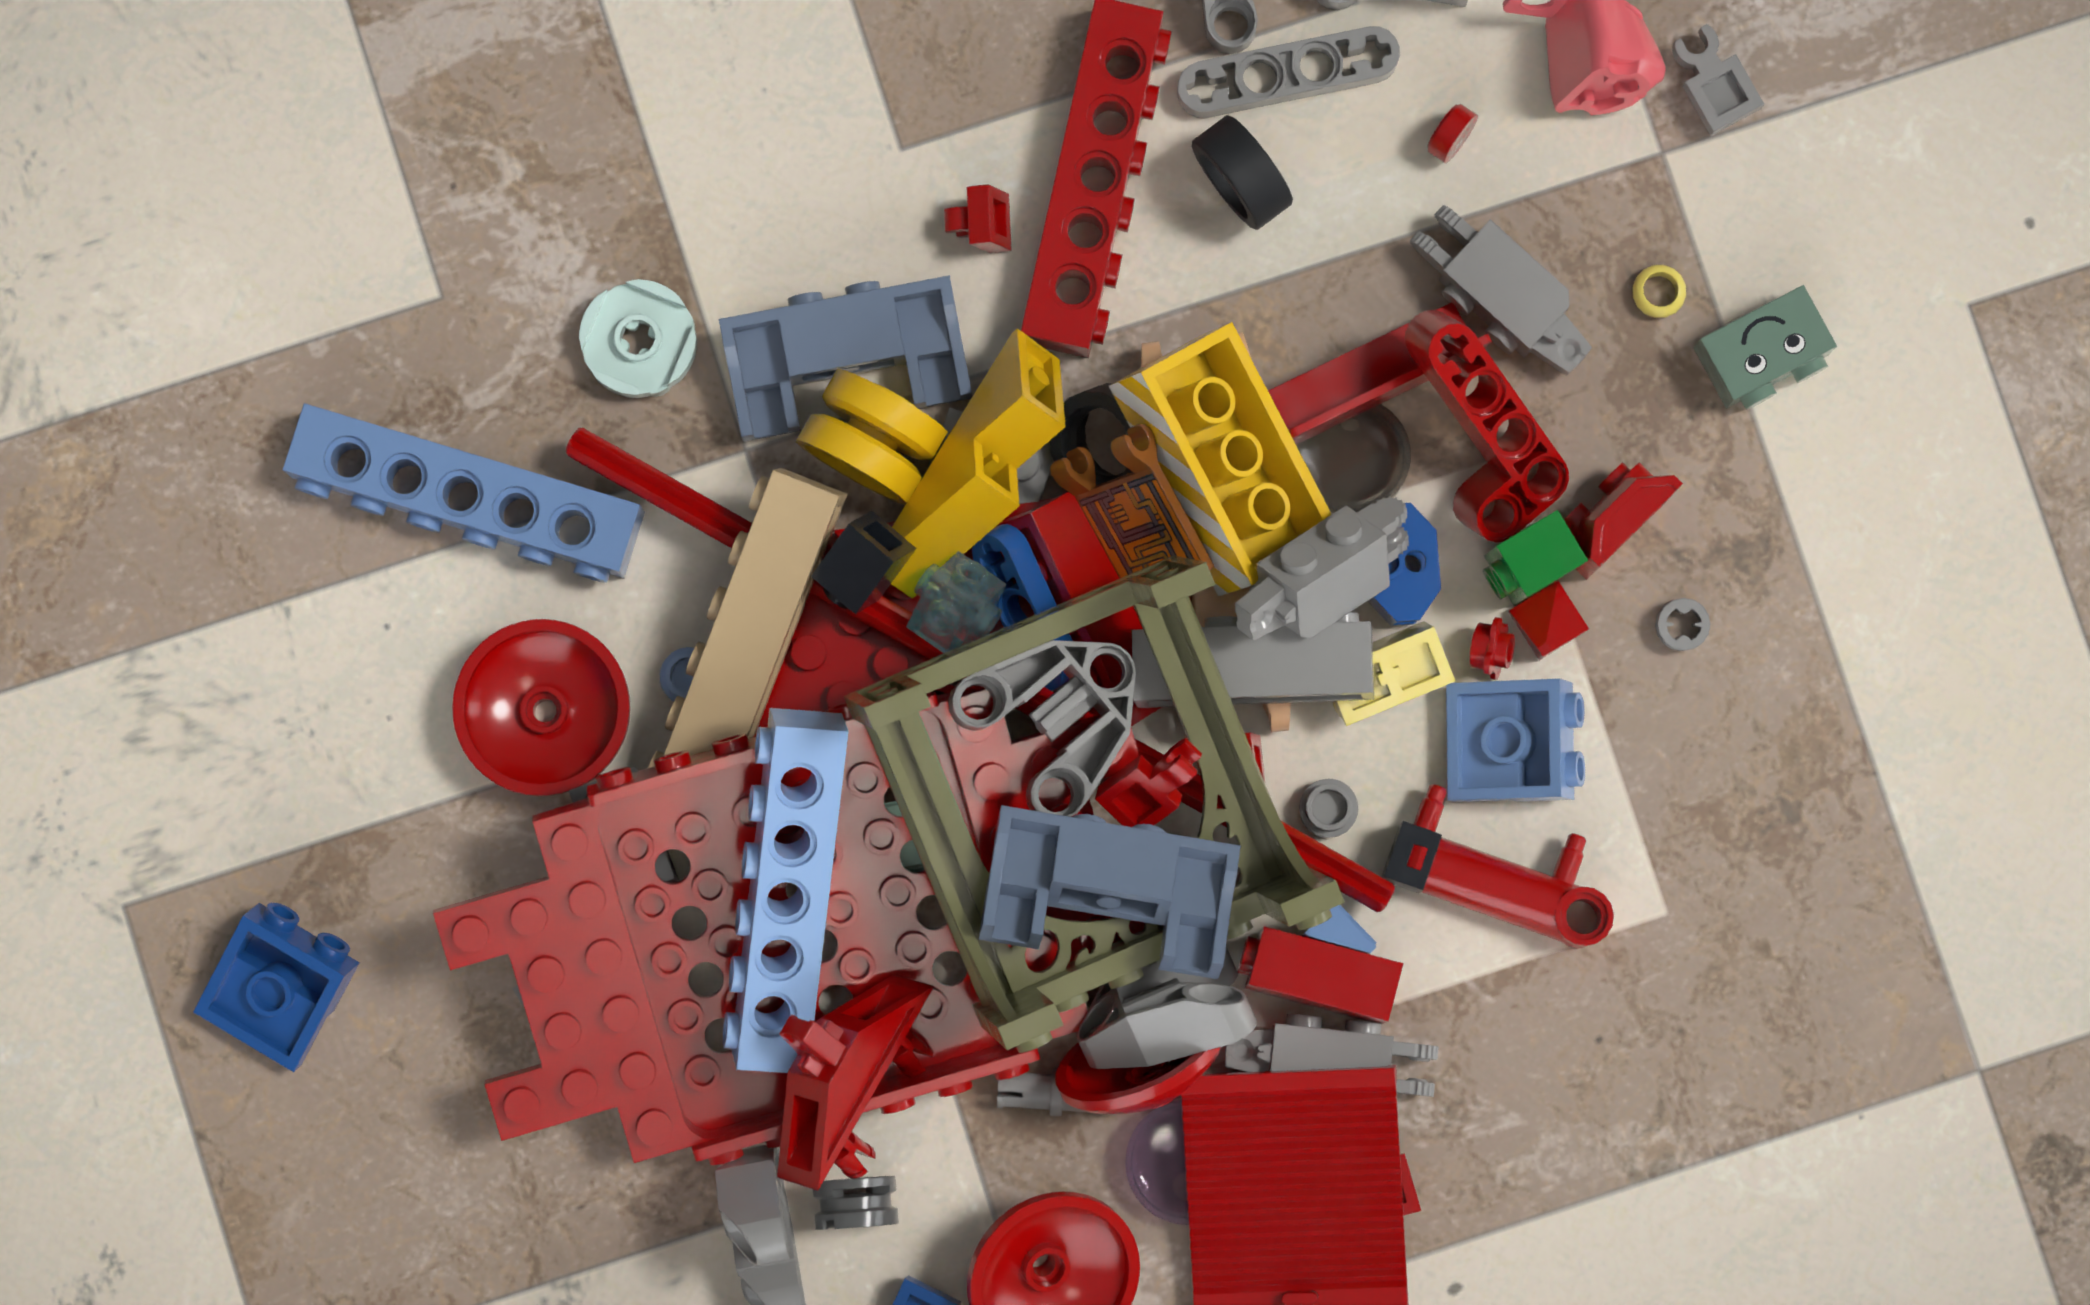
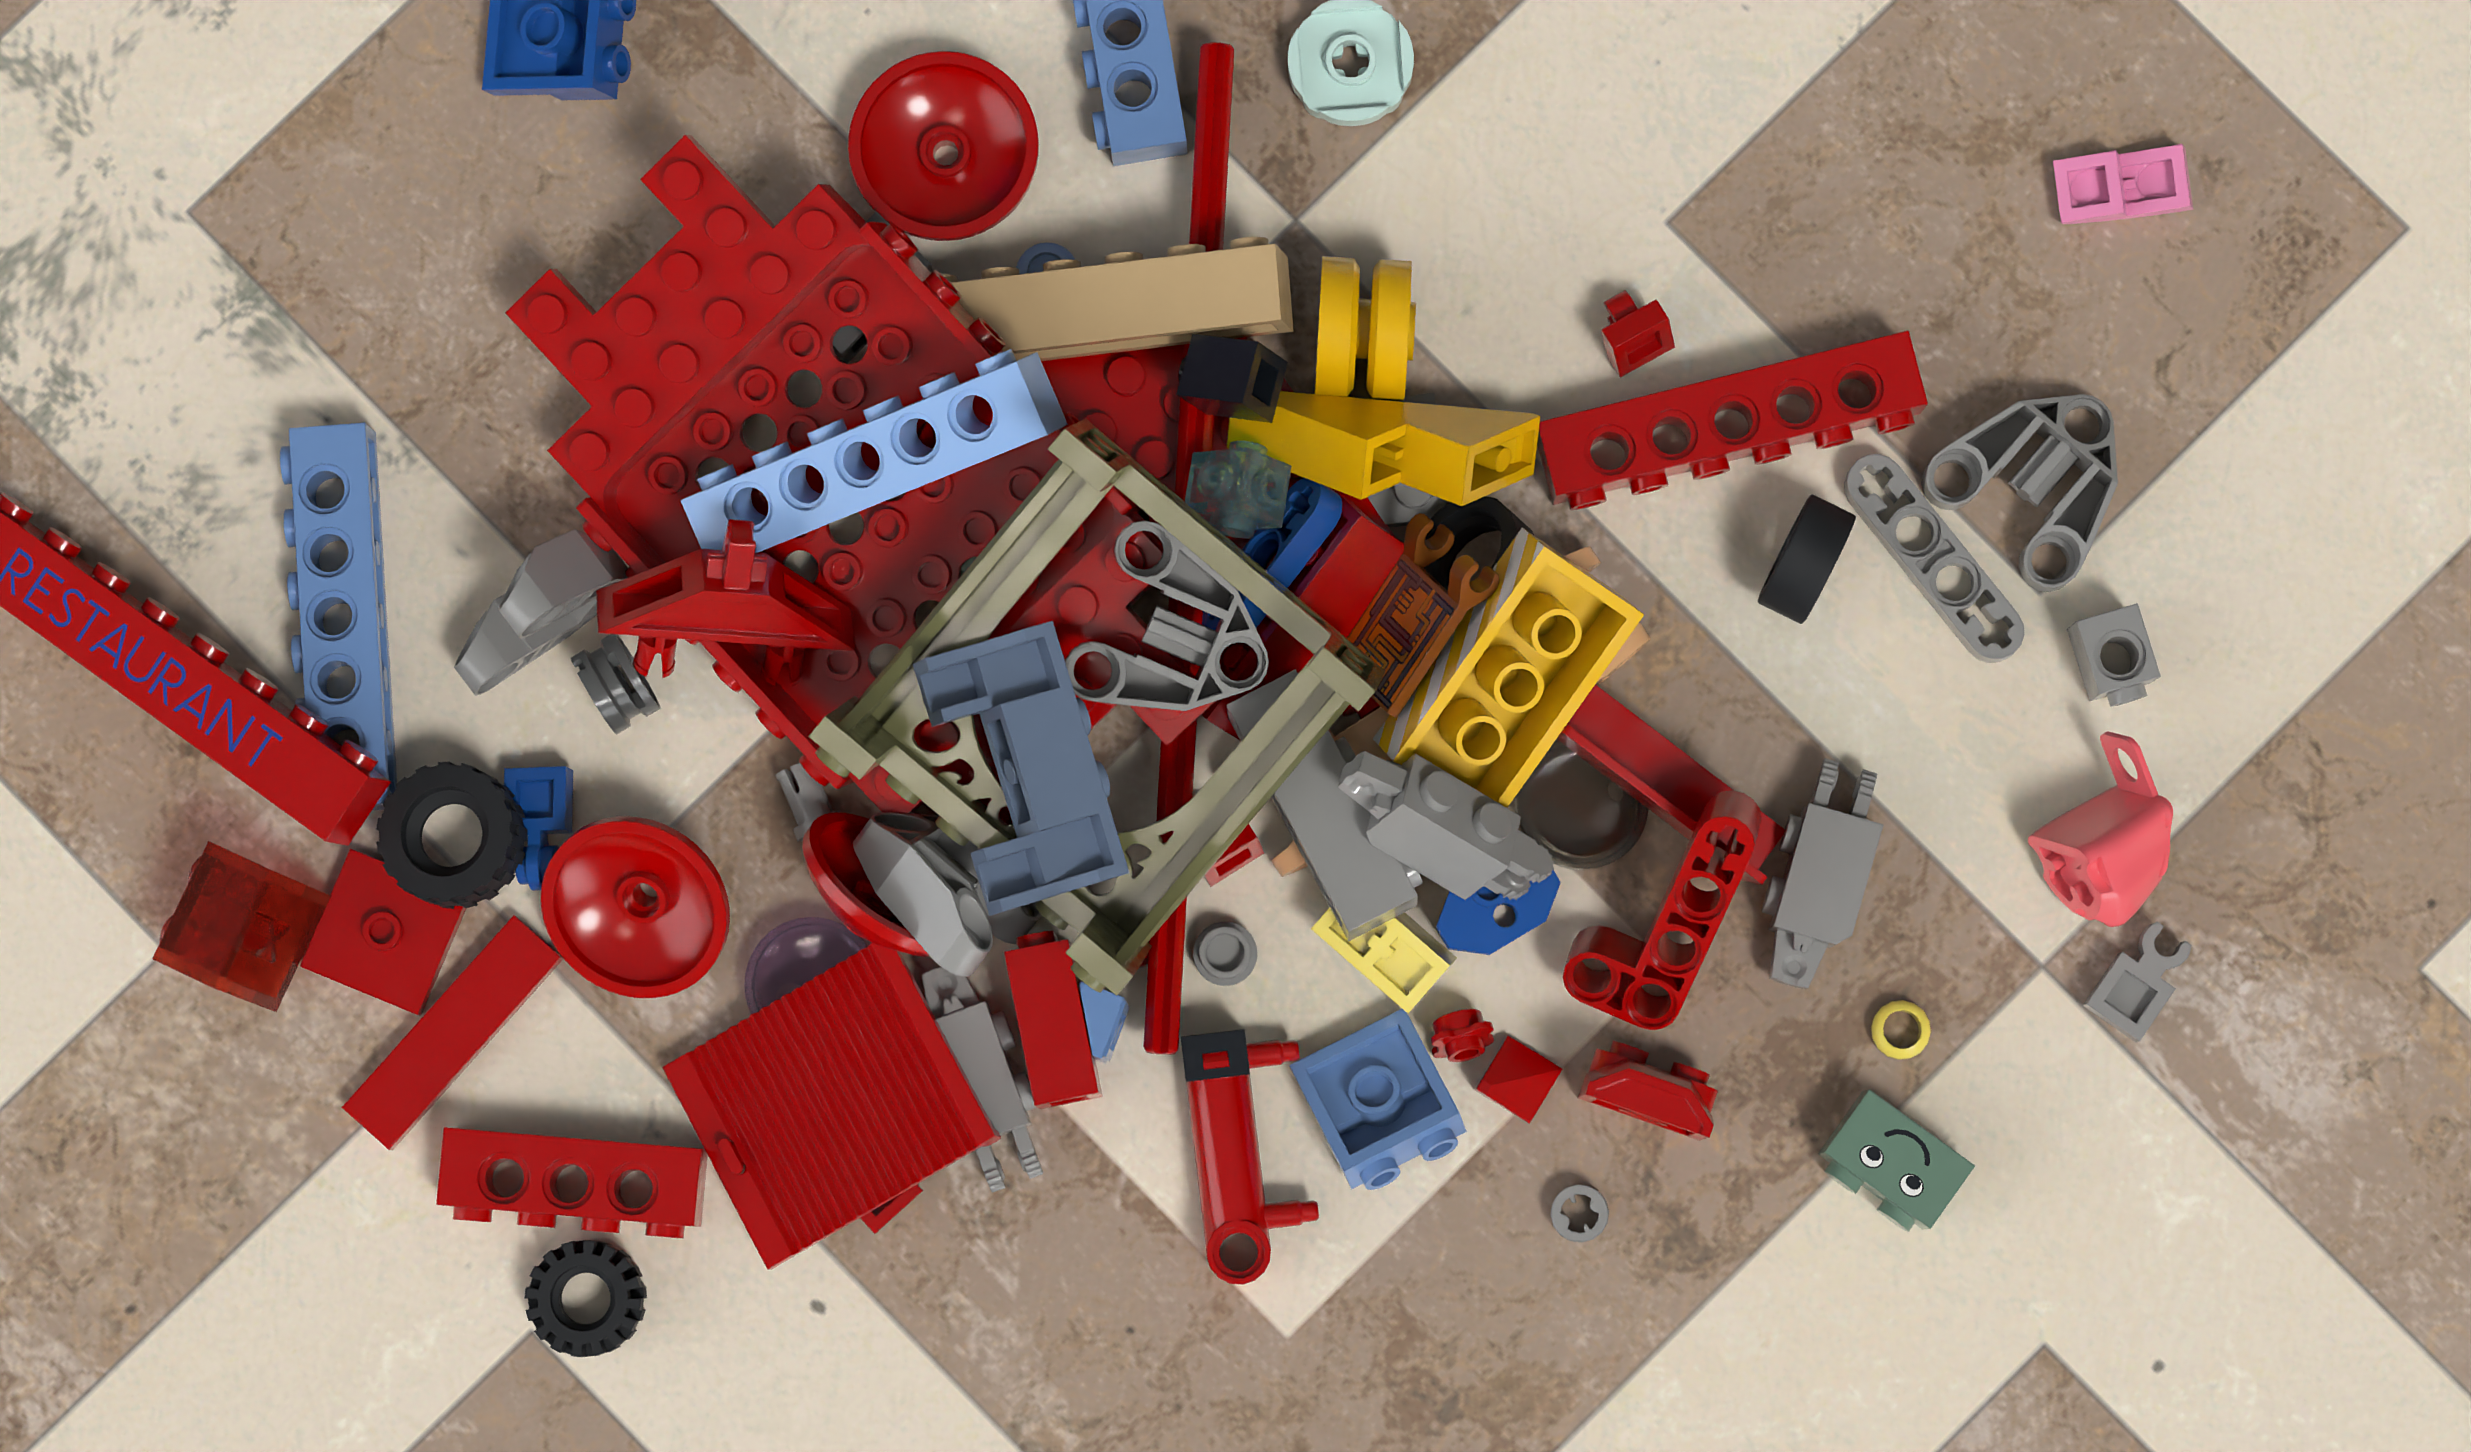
camera: 65 degrees right, 0 degrees up
(849, 332) = (1452, 257): sand blue bracket -> none
(1147, 792) = (1139, 758): red plate -> none
(1452, 132) = (1953, 747): red tile -> none
(1533, 559) = (1565, 1030): green brick -> none

